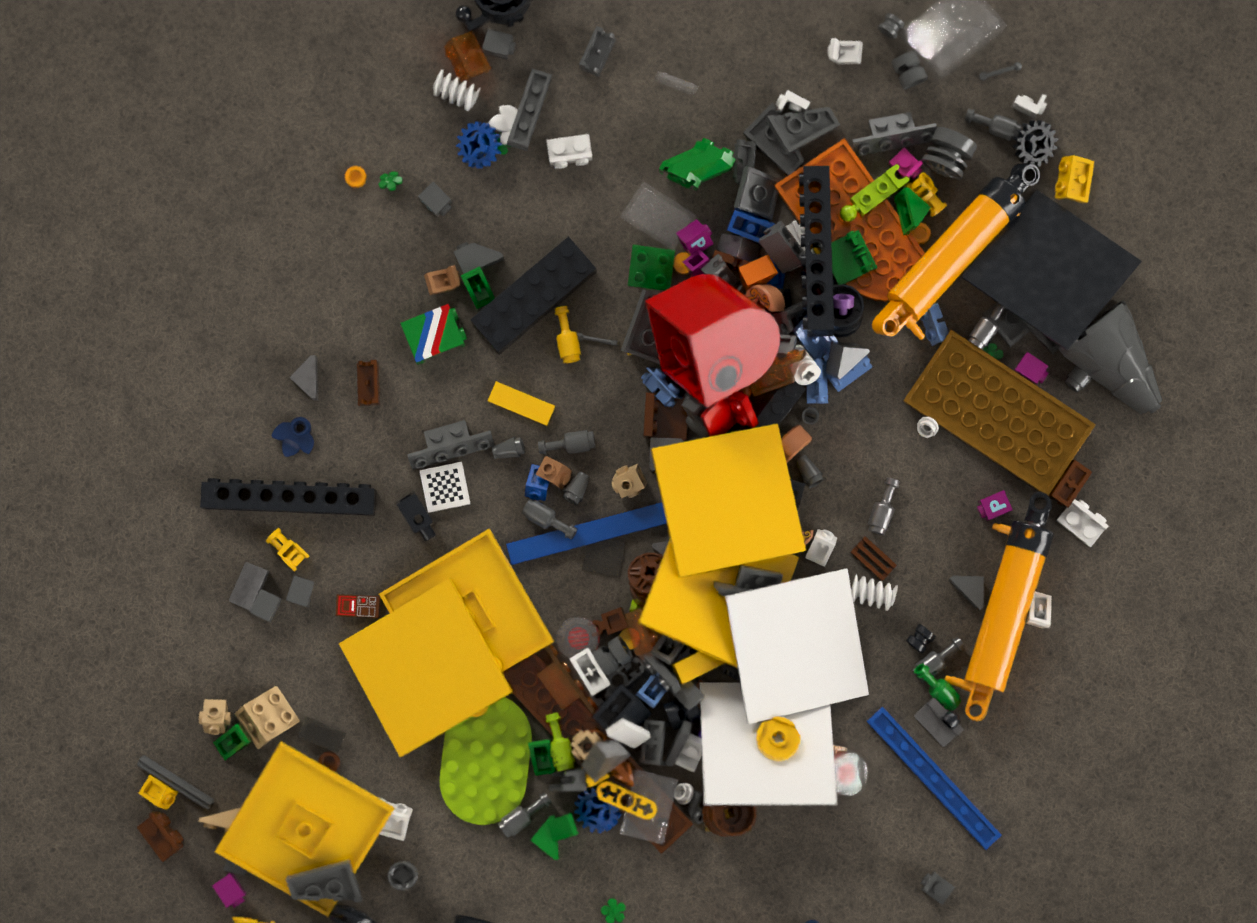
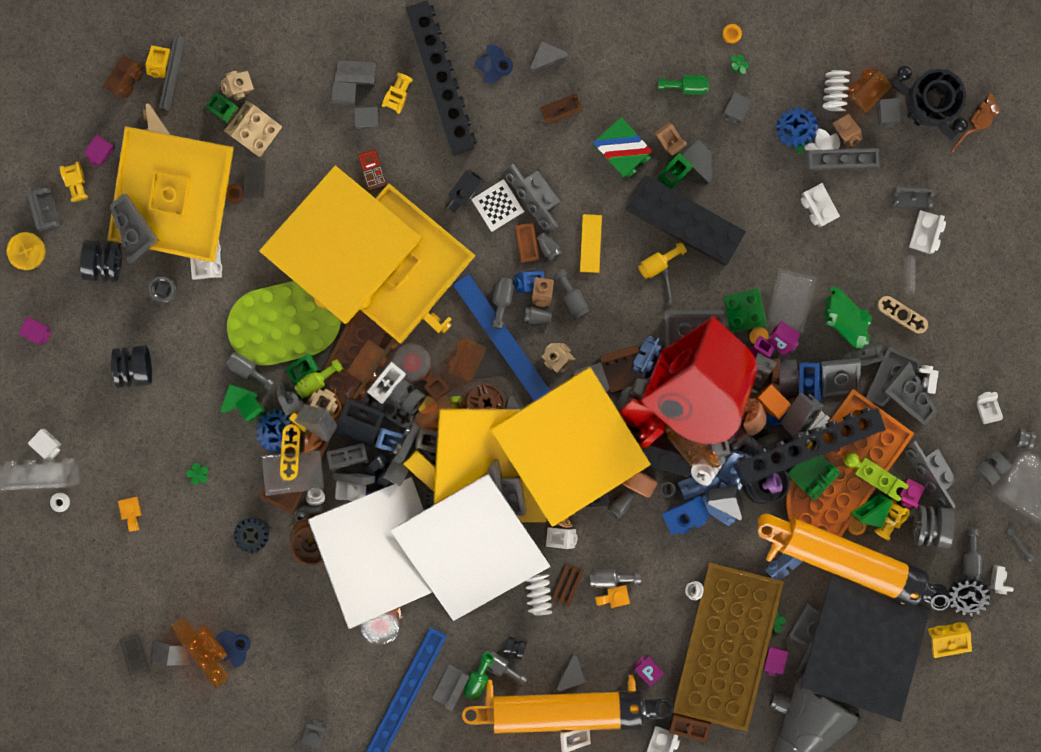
camera: 70 degrees right, 5 degrees up
(391, 240) = (689, 84): none -> green piece
(496, 470) = (527, 242): none -> dark orange tile
(502, 93) = (848, 131): none -> medium nougat bracket
(542, 599) = (433, 320): none -> yellow bracket
(595, 578) = (467, 359): none -> clear orange bracket
(628, 733) = (346, 433): white tile -> none
(638, 49) = (927, 232): none -> white bracket
(700, 877) = (245, 536): none -> black wheel
(724, 92) = (911, 326): none -> tan beam
(788, 733) = (394, 551): yellow plate -> none
(845, 418) = (693, 508): none -> blue brick
(904, 512) = (616, 597): none -> light orange plate
(950, 719) = (455, 697): black hinge -> none
(986, 328) = (795, 610): flat silver piece -> none

